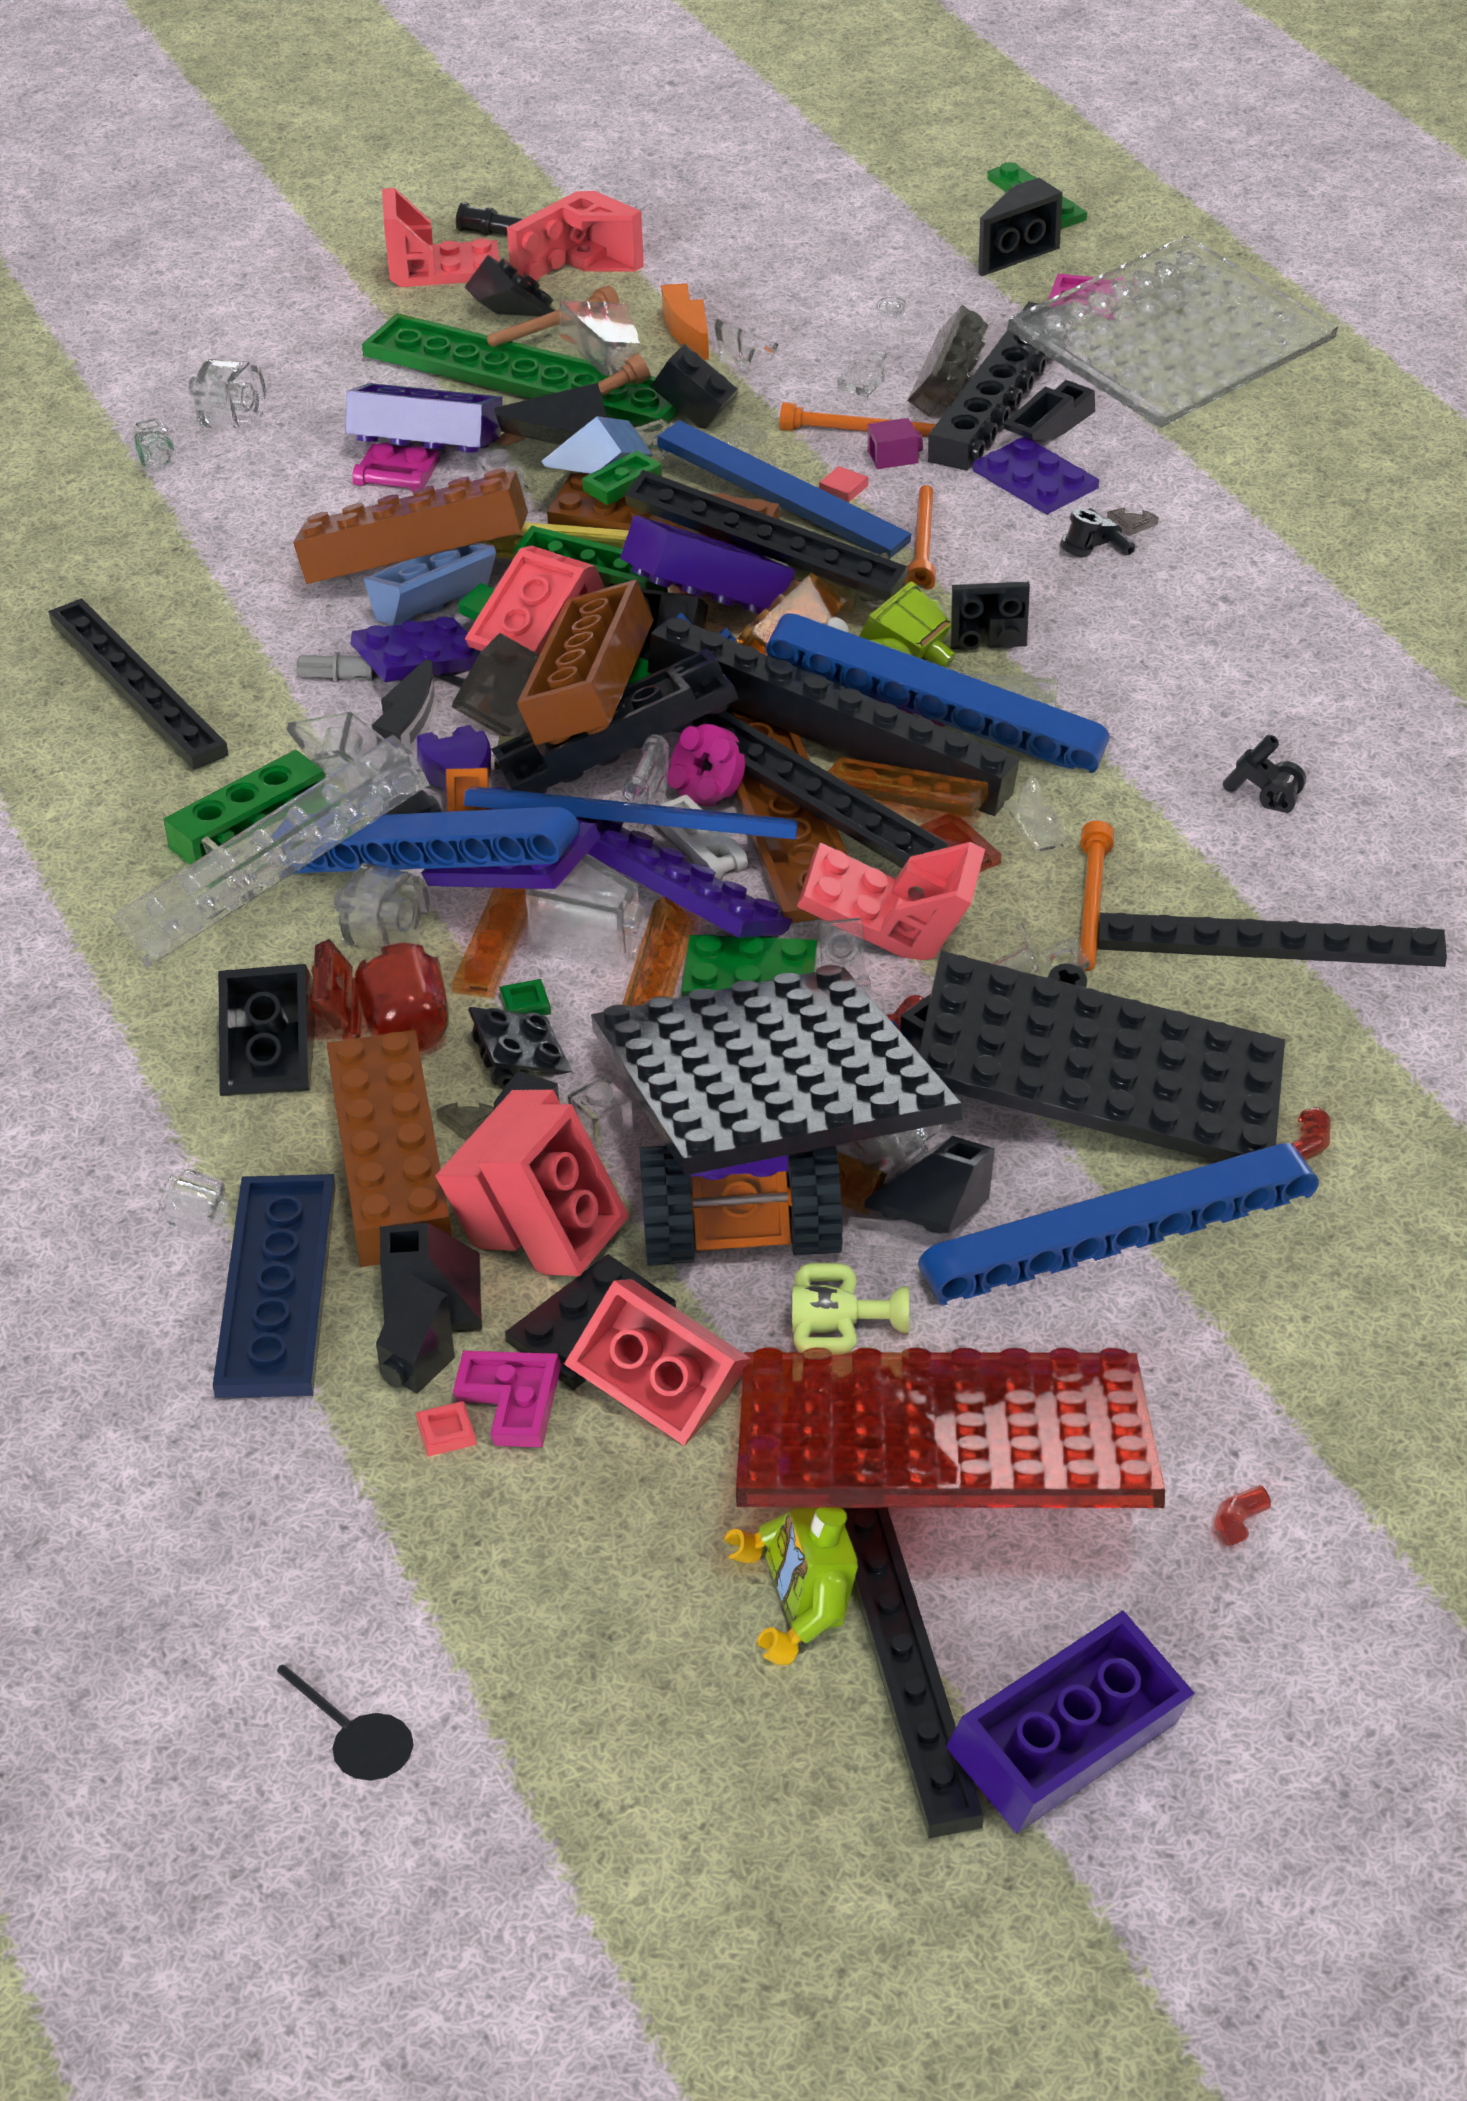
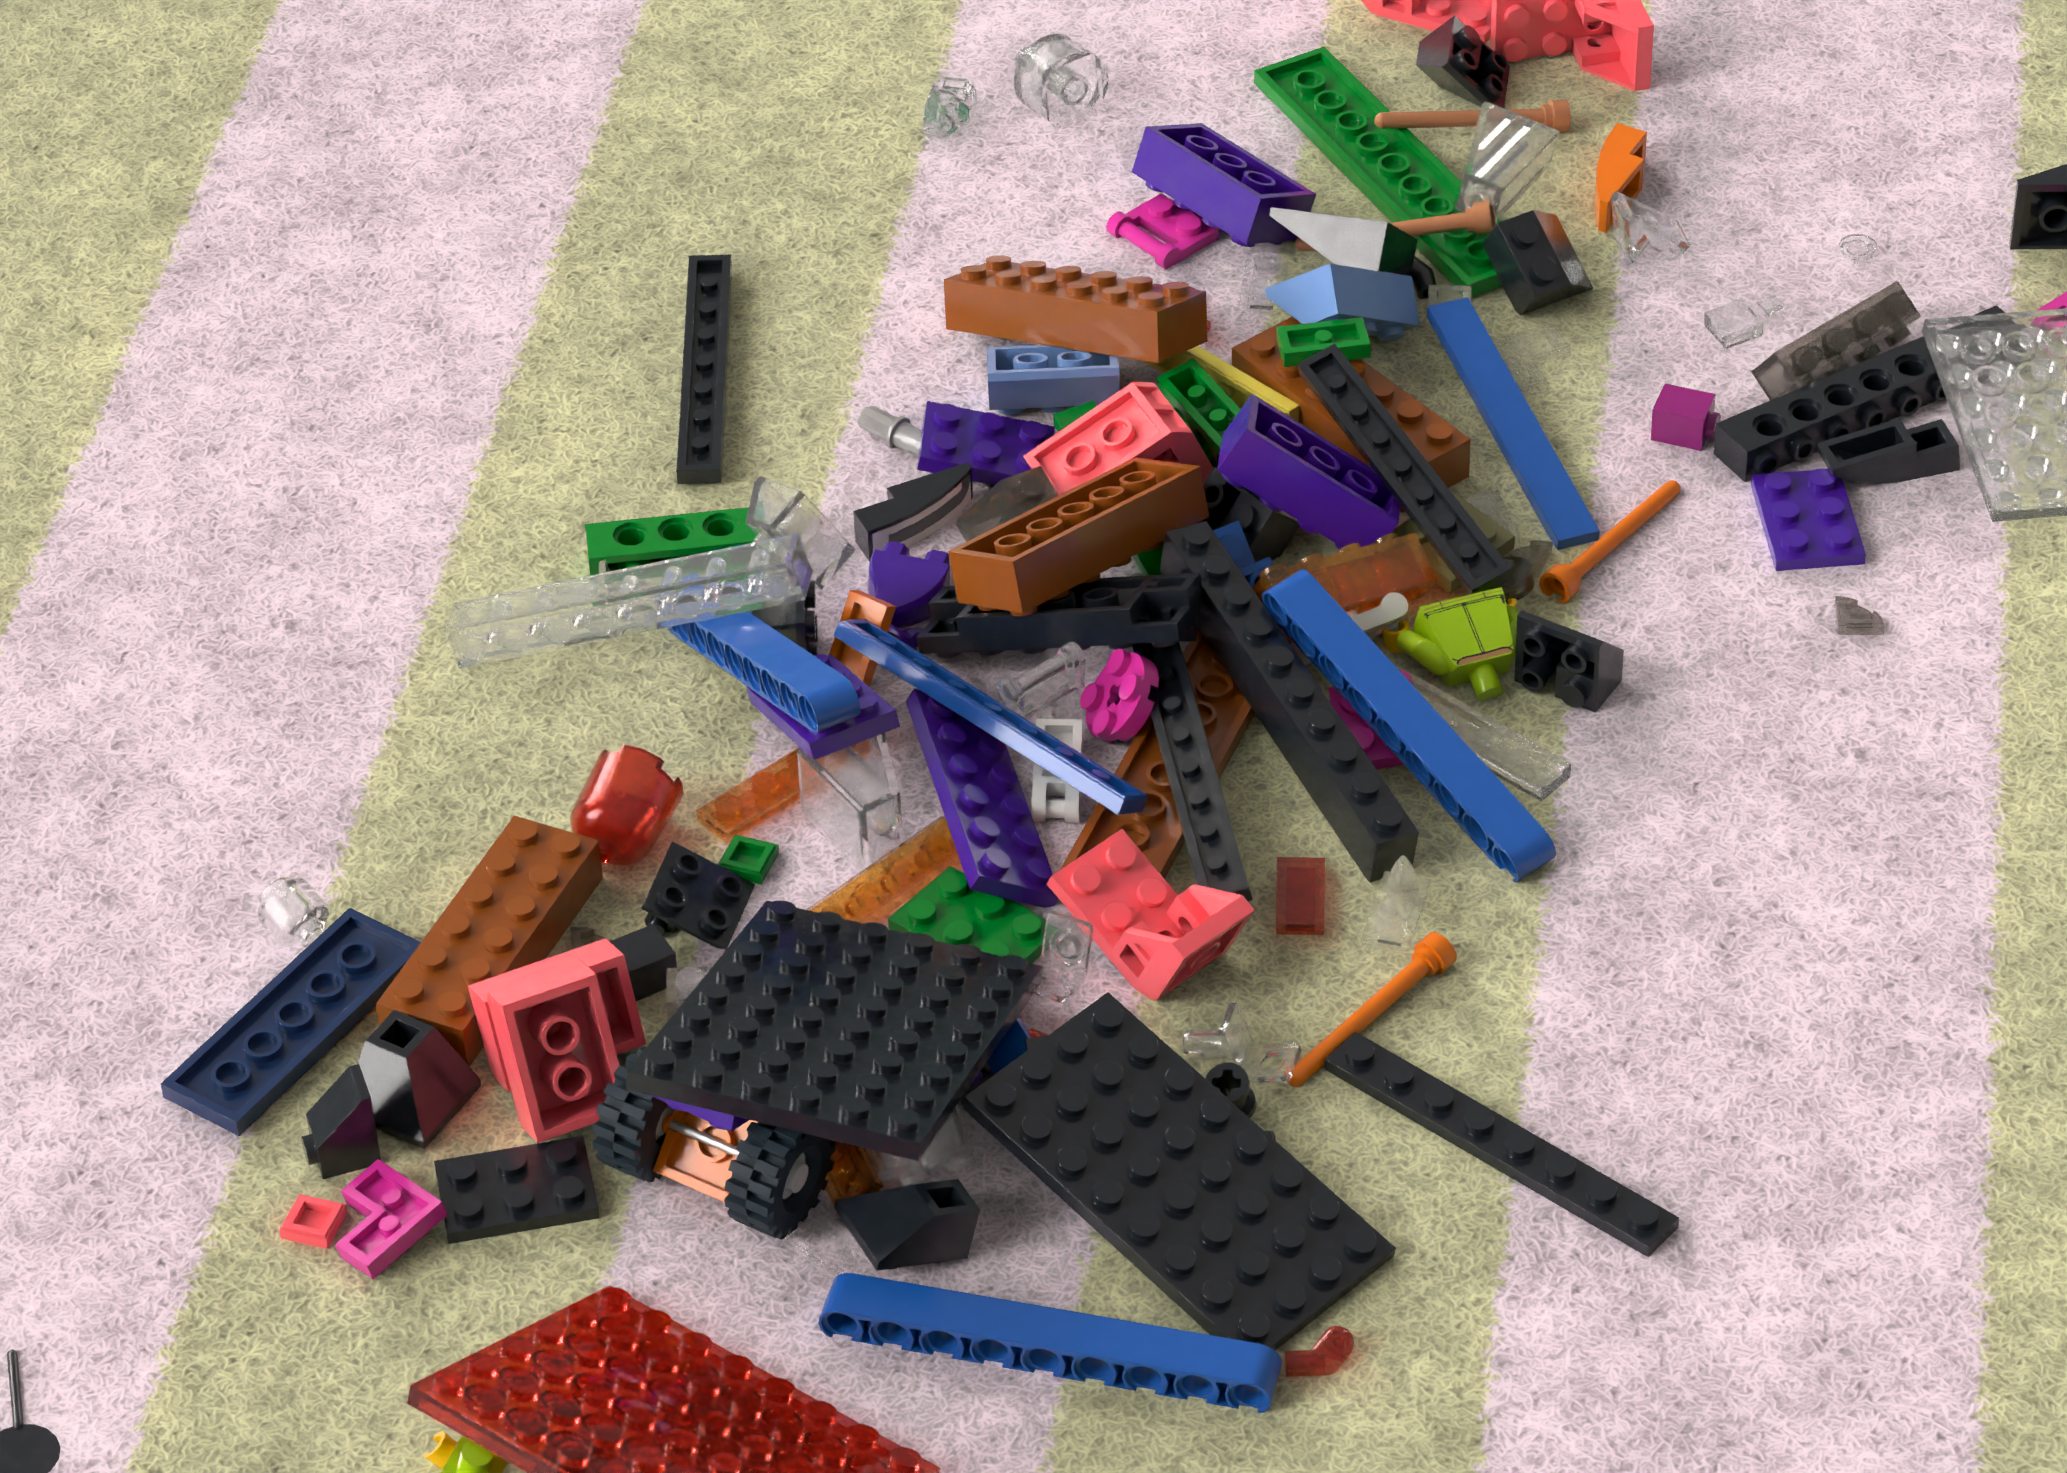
camera: 35 degrees right, 0 degrees up
(265, 1029) = (493, 773): black slope -> none
(335, 990) = (571, 763): clear red plate -> none
(381, 907) = (689, 698): clear brick -> none
(656, 1360) = (518, 1247): coral slope -> none
(795, 417) = (1615, 339): orange piece -> none
(837, 1309) = (718, 1287): yellowish green piece -> none
(844, 483) = (1592, 442): coral tile -> none
(913, 787) = (1298, 810): clear orange plate -> none
(1091, 529) = (1789, 612): black piece -> none
(1268, 776) = (1670, 972): black piece -> none

